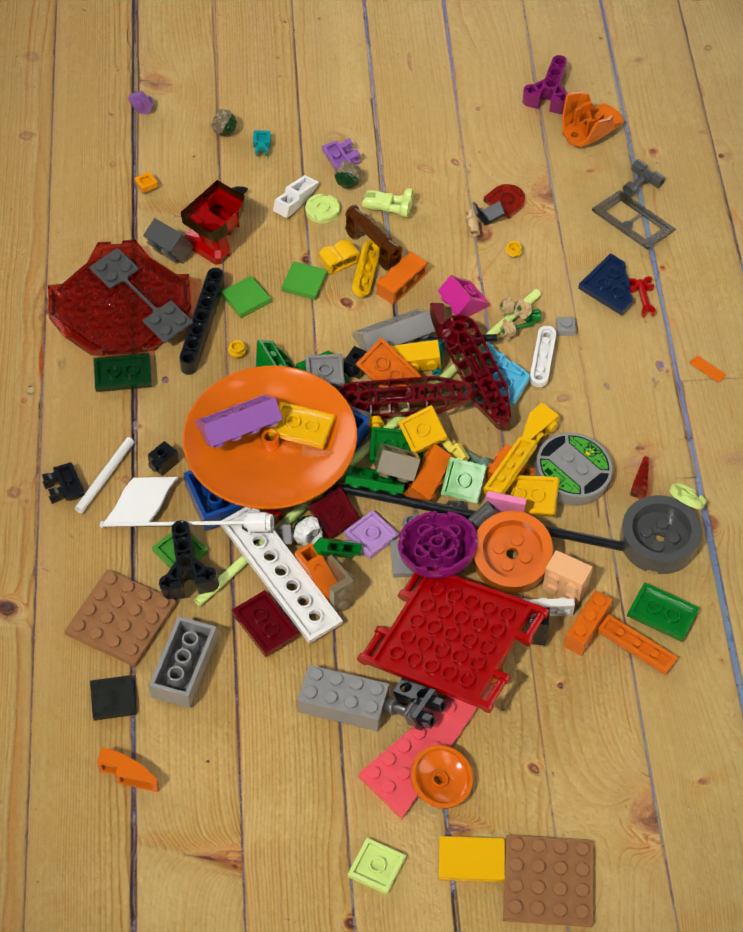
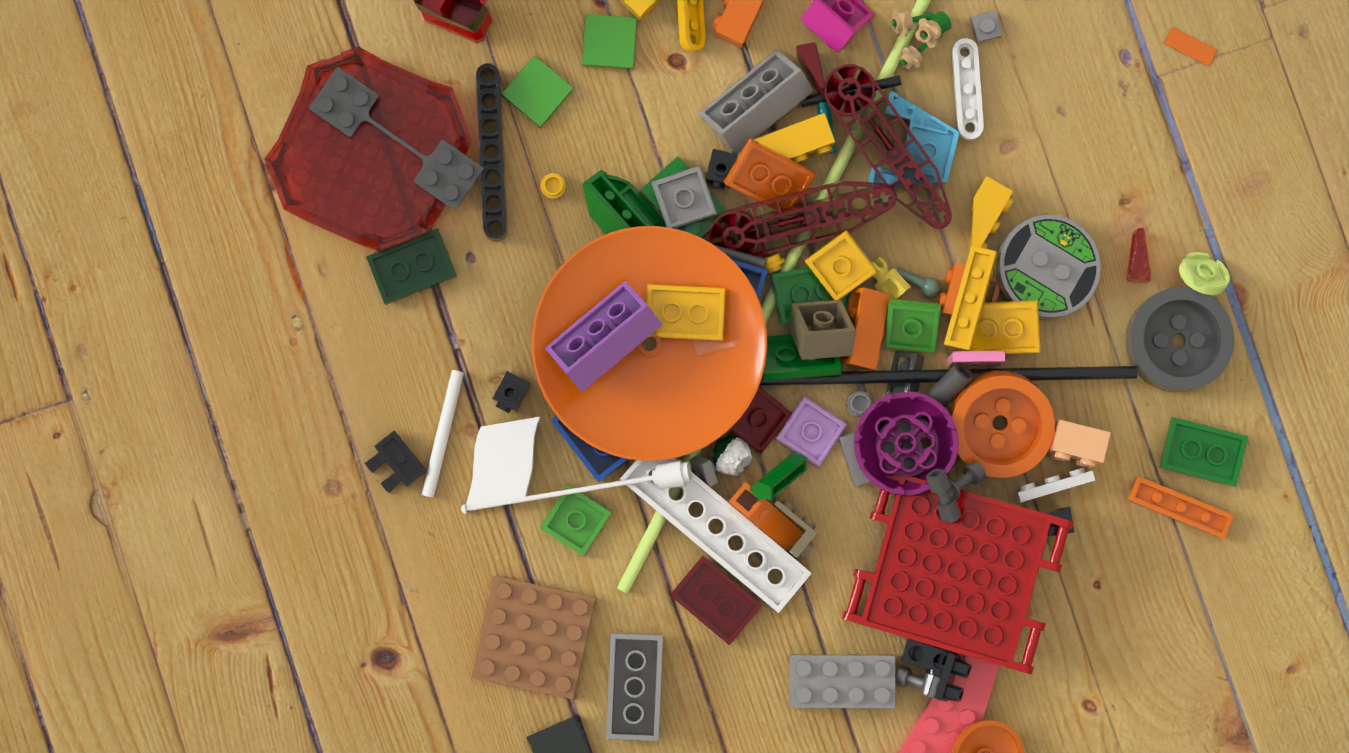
camera: 15 degrees left, 30 degrees up
(168, 241) = (404, 36): dark grey brick -> none
(173, 583) = (589, 566): black beam -> none
(461, 574) = (950, 491): none -> dark grey bar
(587, 622) = (1115, 495): orange brick -> none

